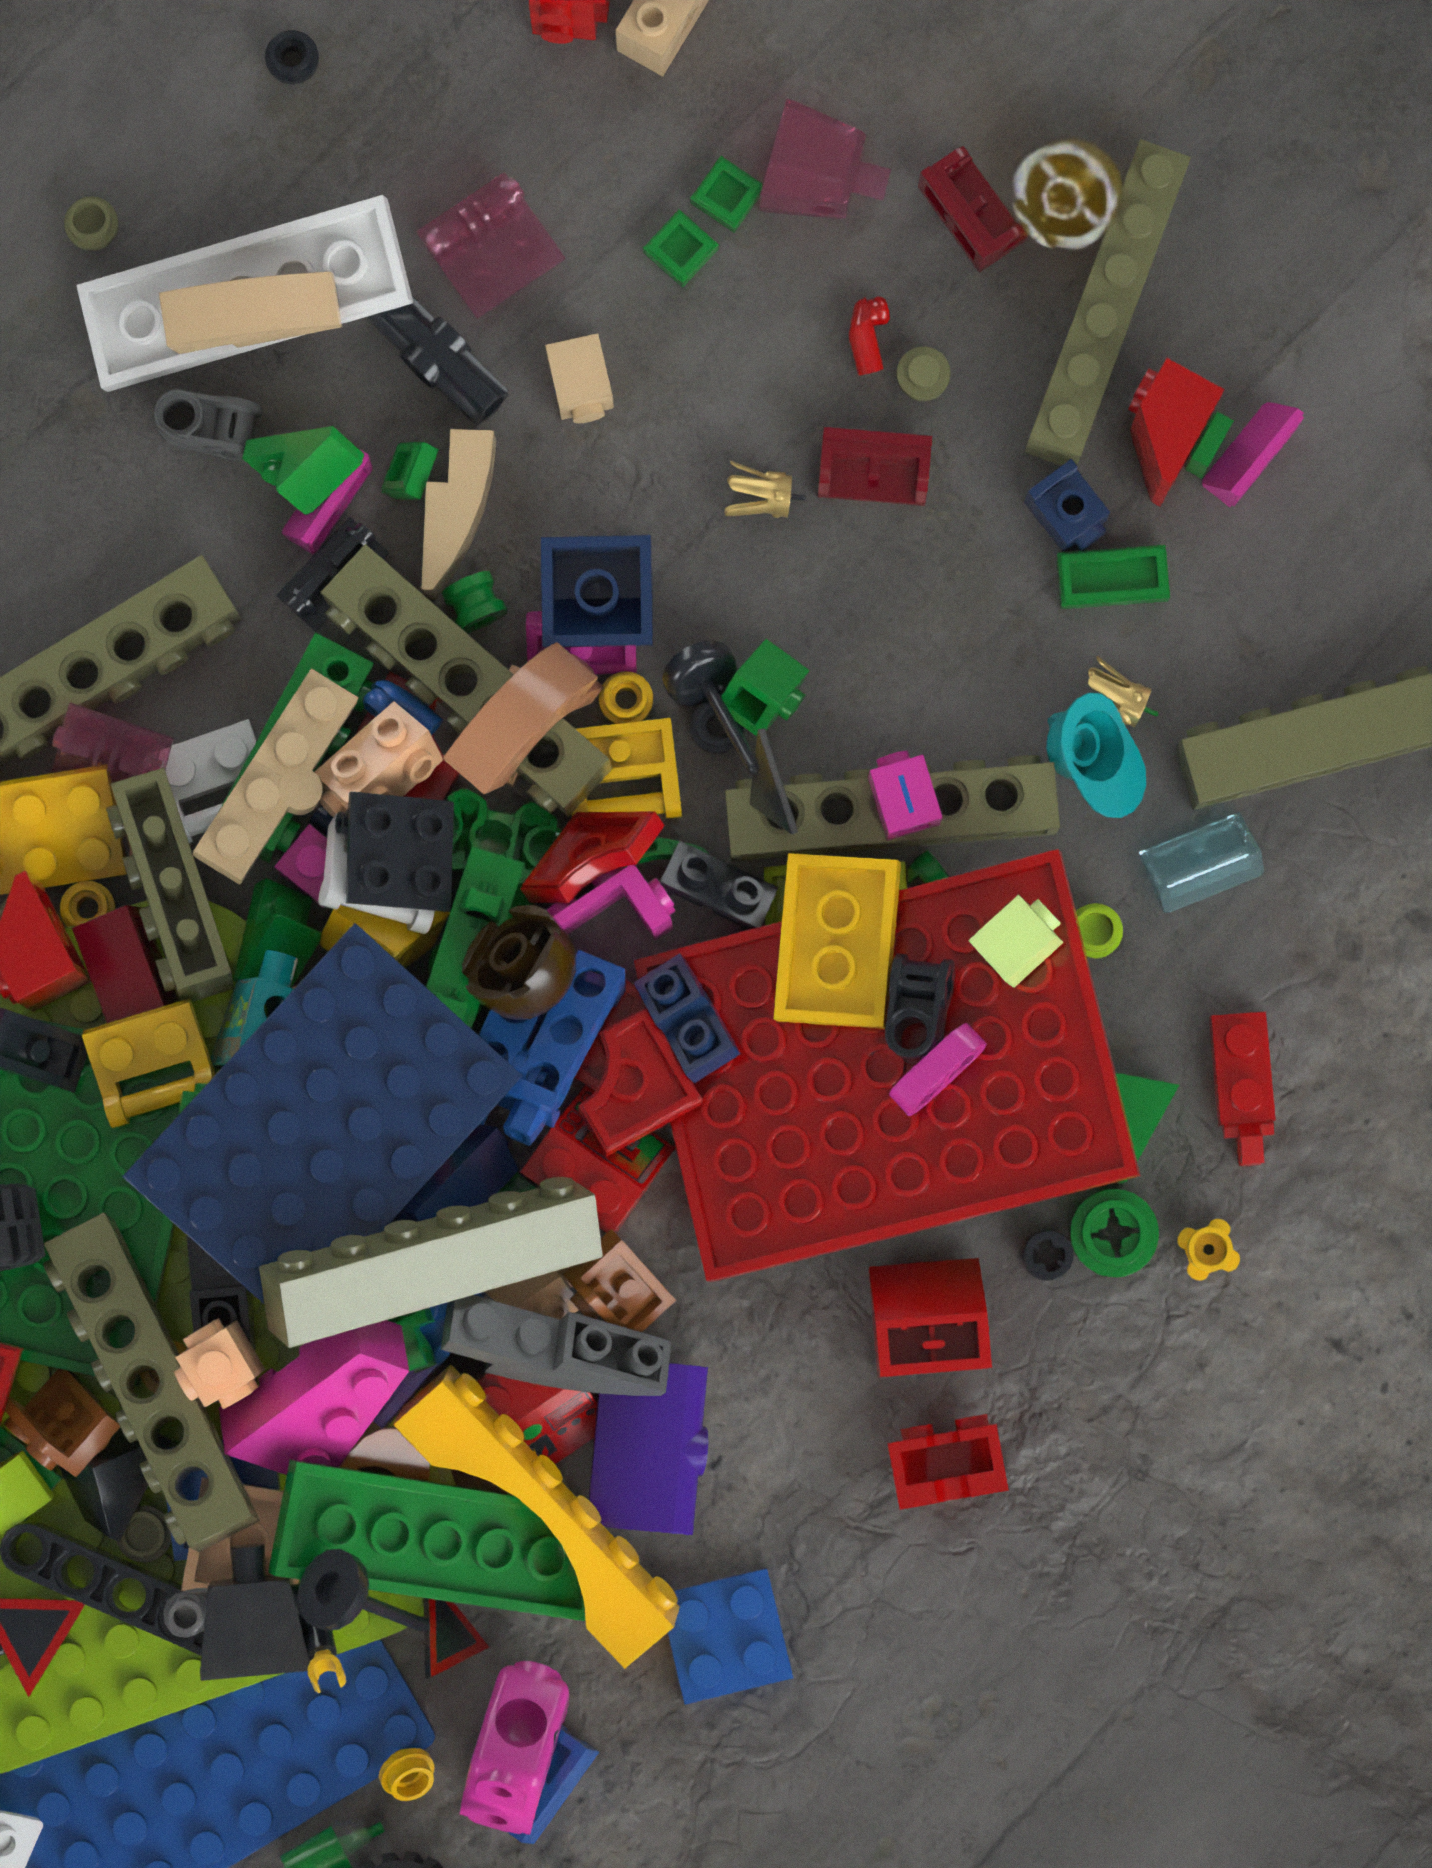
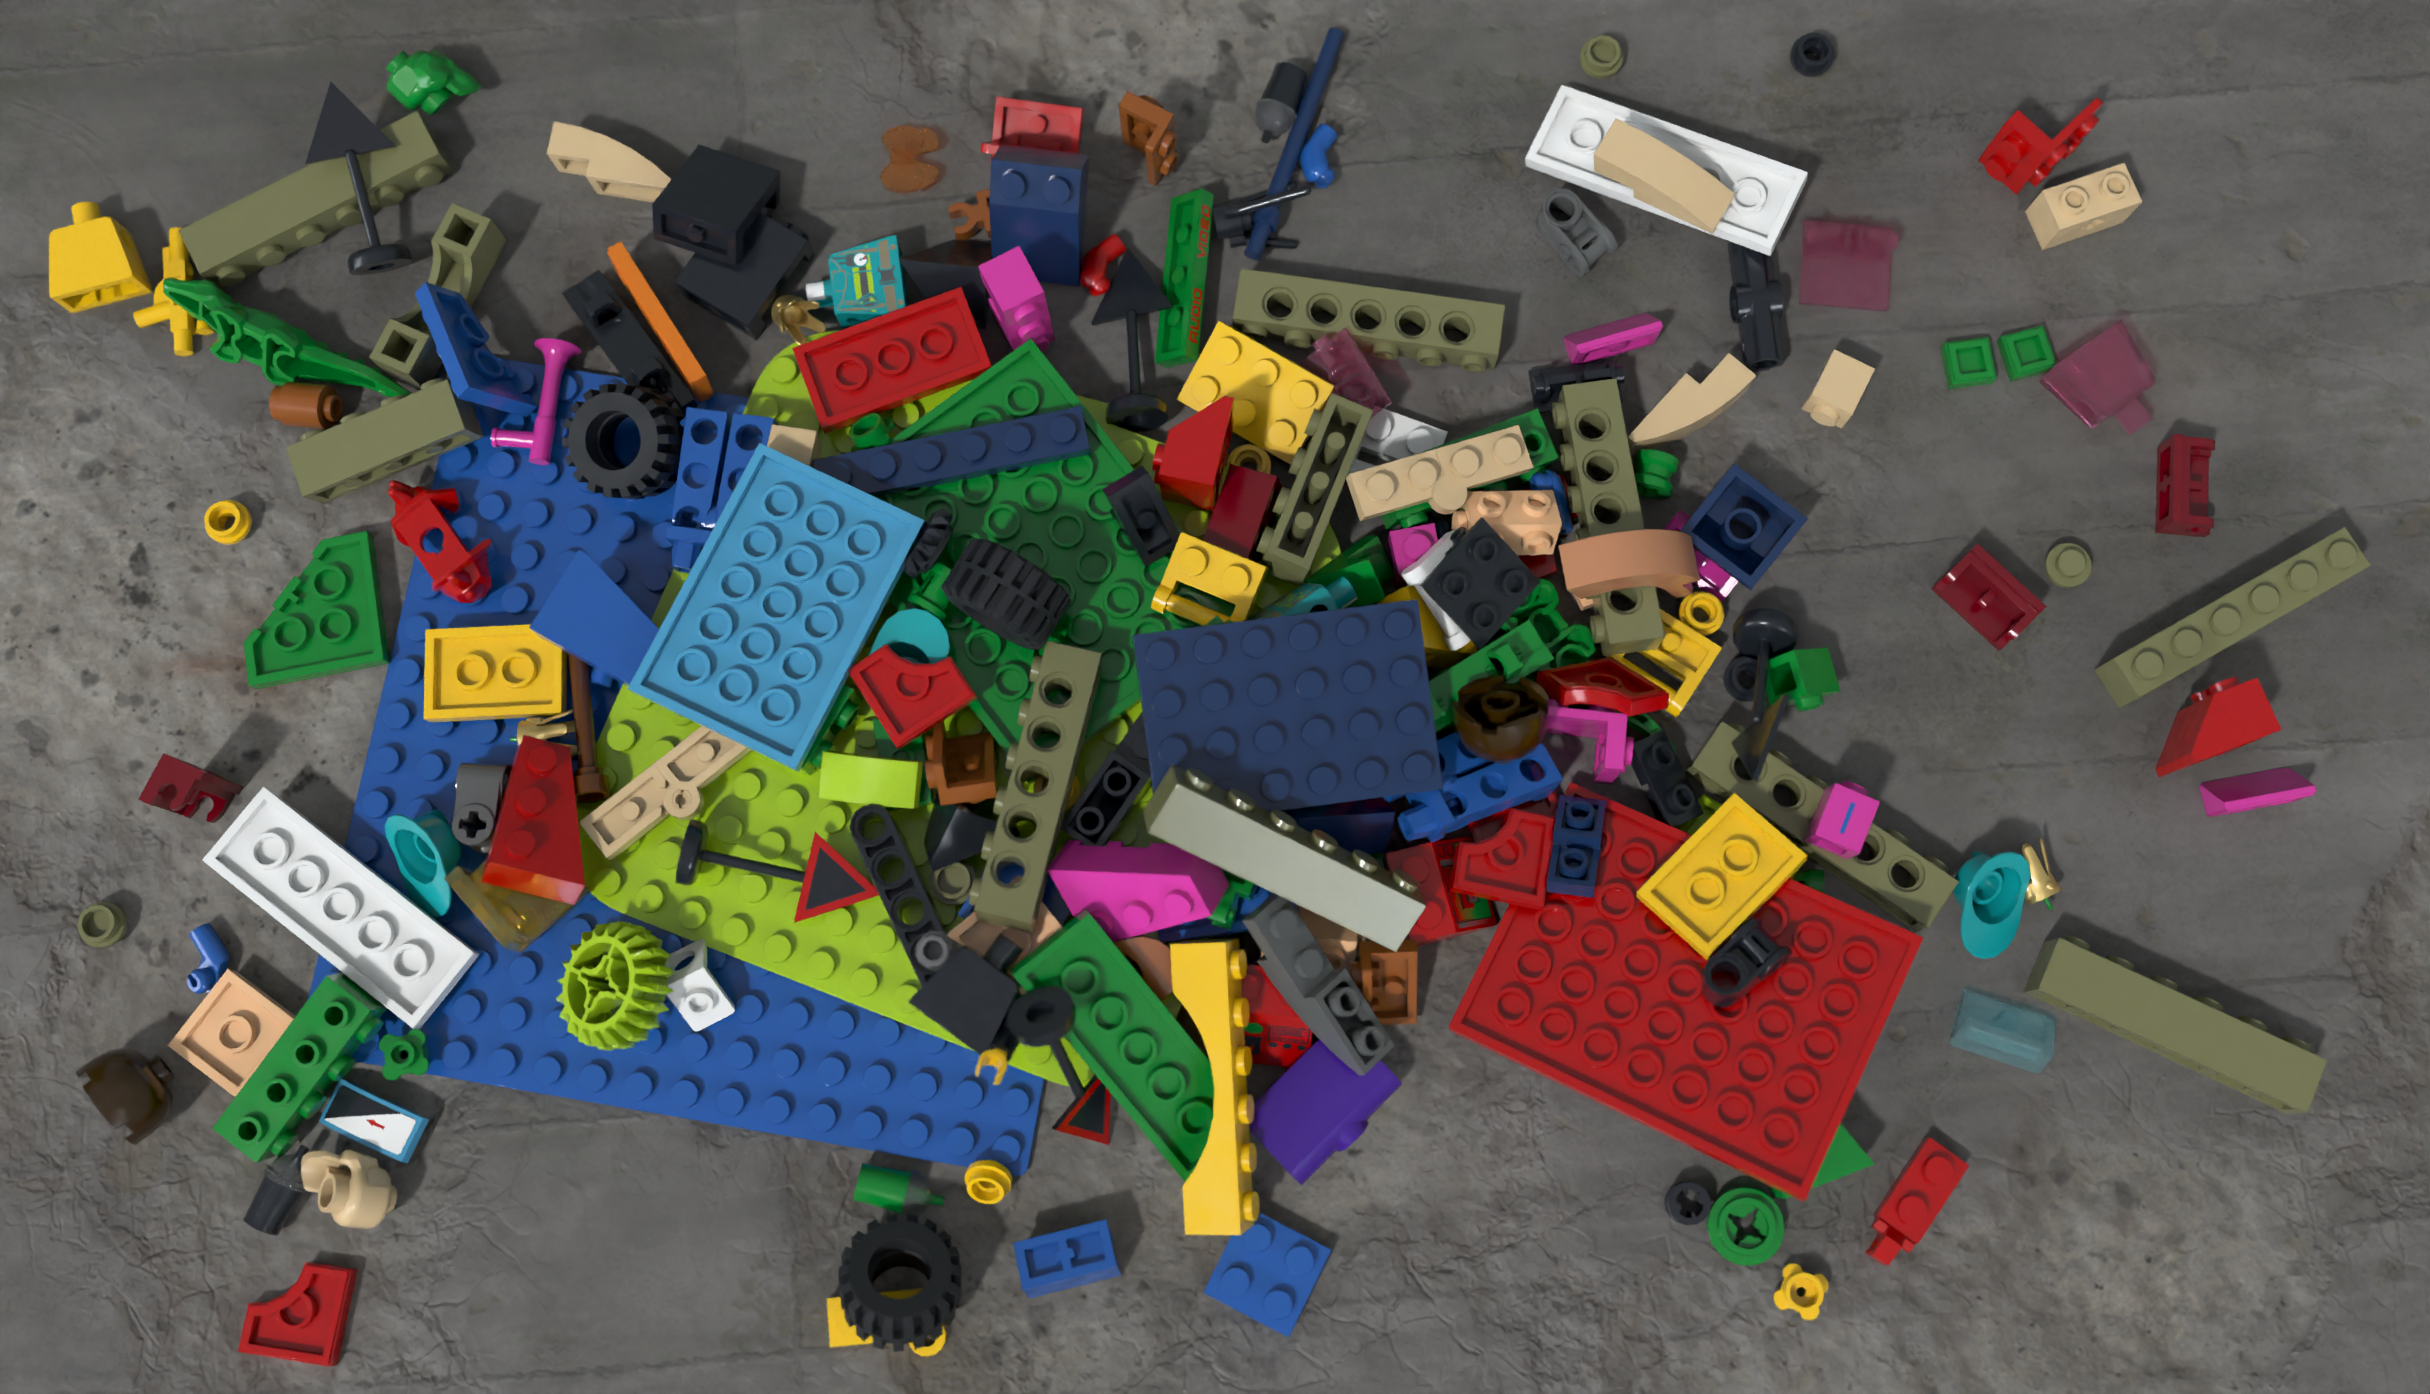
camera: 45 degrees right, 5 degrees down
(218, 1365) = (1091, 807): light nougat brick -> none
(304, 464) = (1618, 299): green slope -> none
(409, 470) = (1679, 360): green tile -> none
(515, 1747) = (1071, 1224): dark pink piece -> none
(775, 488) = (1908, 557): pearl gold piece -> none
(862, 333) = (2047, 509): red arm -> none
(929, 1317) = (1575, 1178): red slope -> none
(937, 1069) = (1723, 1015): dark pink beam -> none
(947, 1464) = (1510, 1285): red cylinder -> none
(1018, 939) = (1850, 973): yellowish green brick -> none
(1046, 505) = (2083, 730): dark blue brick -> none
(1067, 193) = (2264, 523): clear yellow cylinder -> none
(1100, 929) = (1901, 1020): lime plate -> none
(1113, 577) = (2091, 796): green tile -> none
(1208, 444) = (2229, 761): green tile -> none

